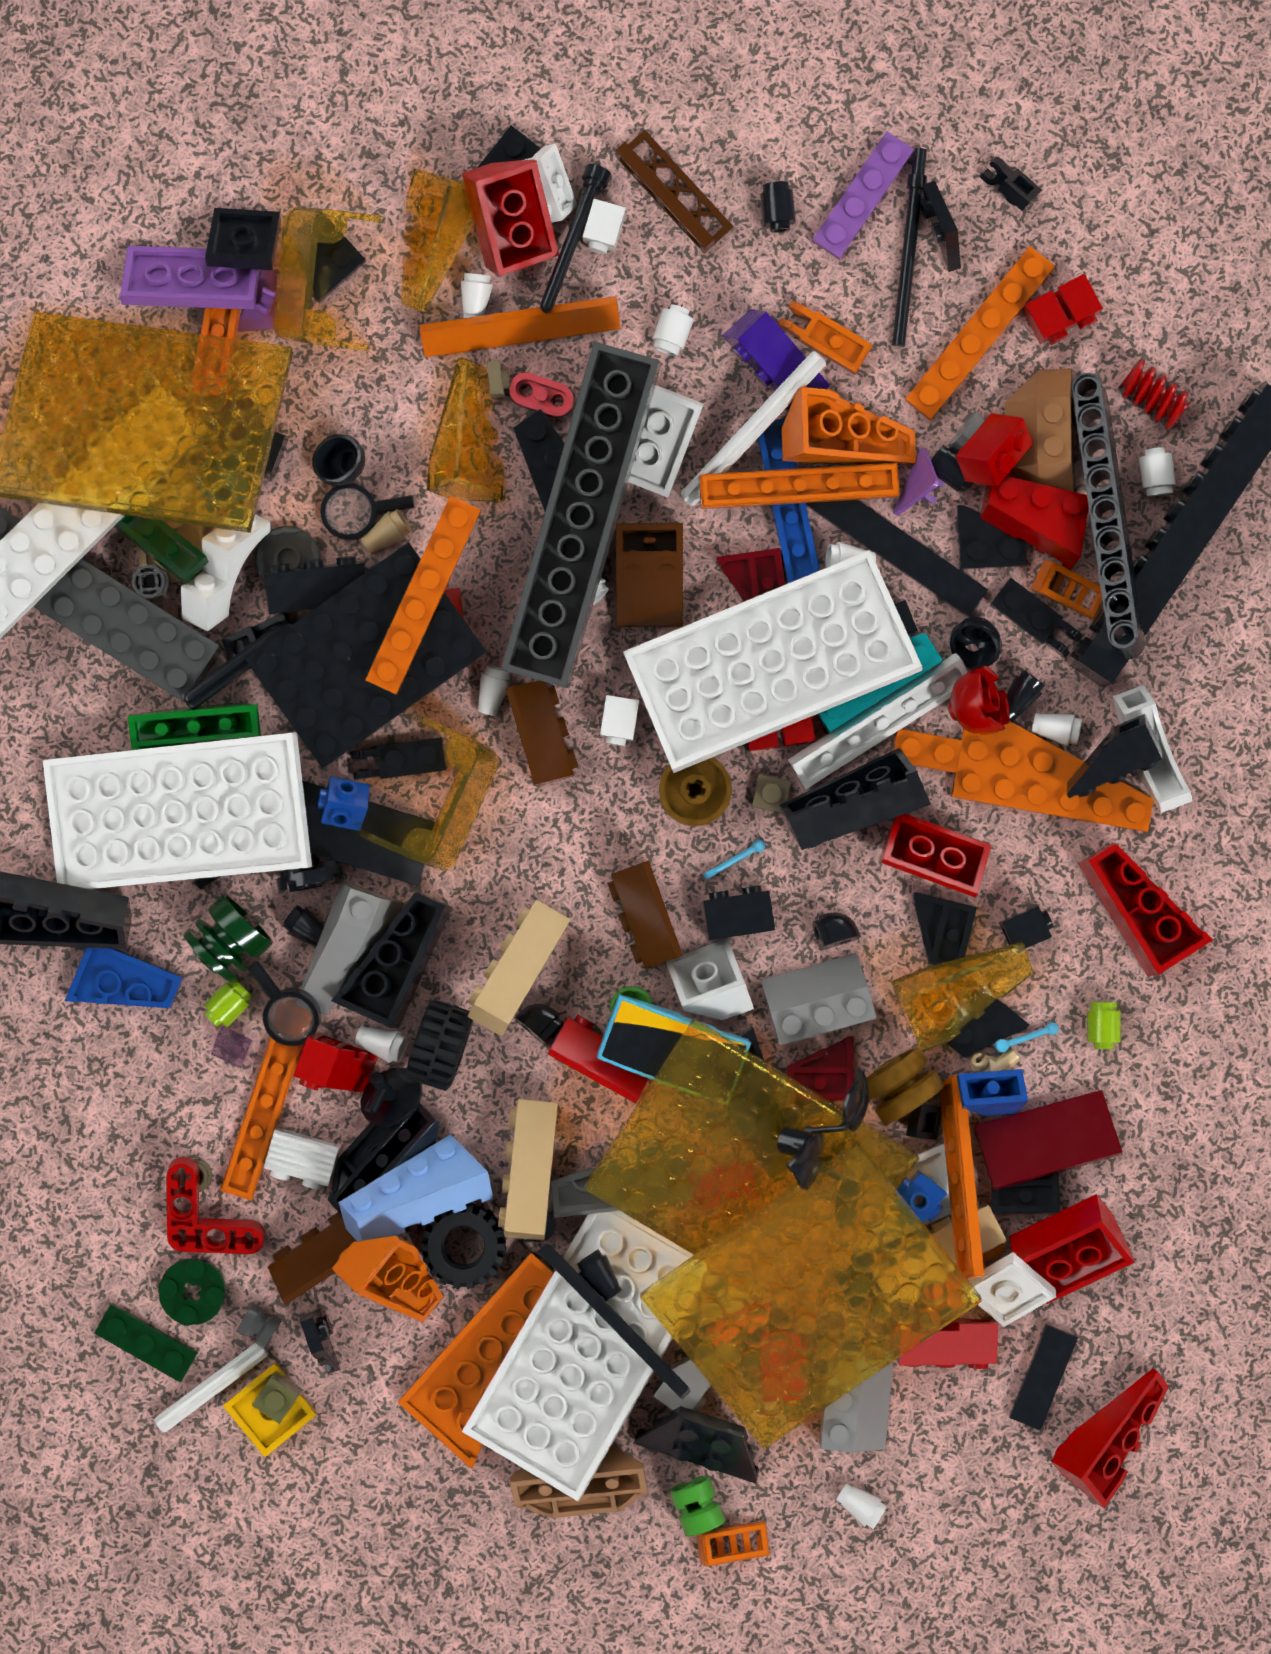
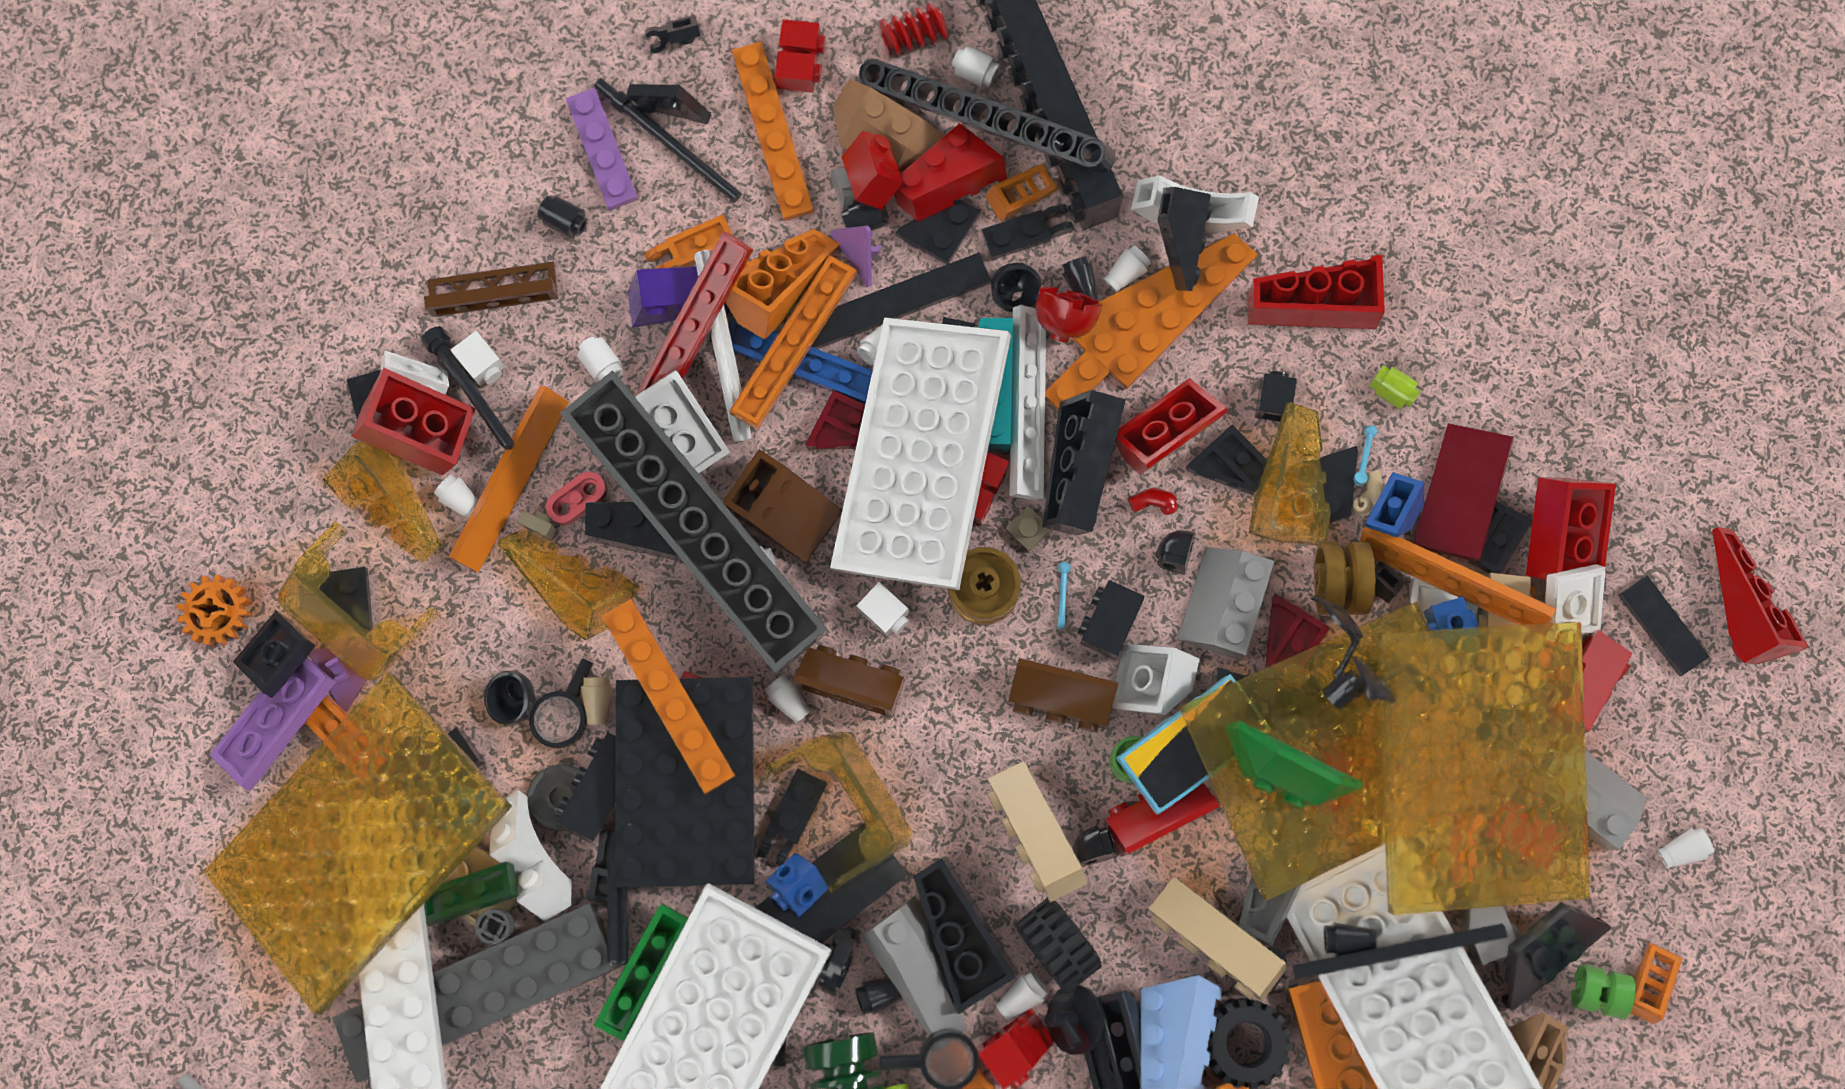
camera: 55 degrees left, 10 degrees down
(233, 167) = (208, 597): none -> orange gear
(697, 1139) = (1286, 770): none -> green wedge
(765, 389) = (699, 309): none -> tile
(870, 883) = (1156, 497): none -> red arm

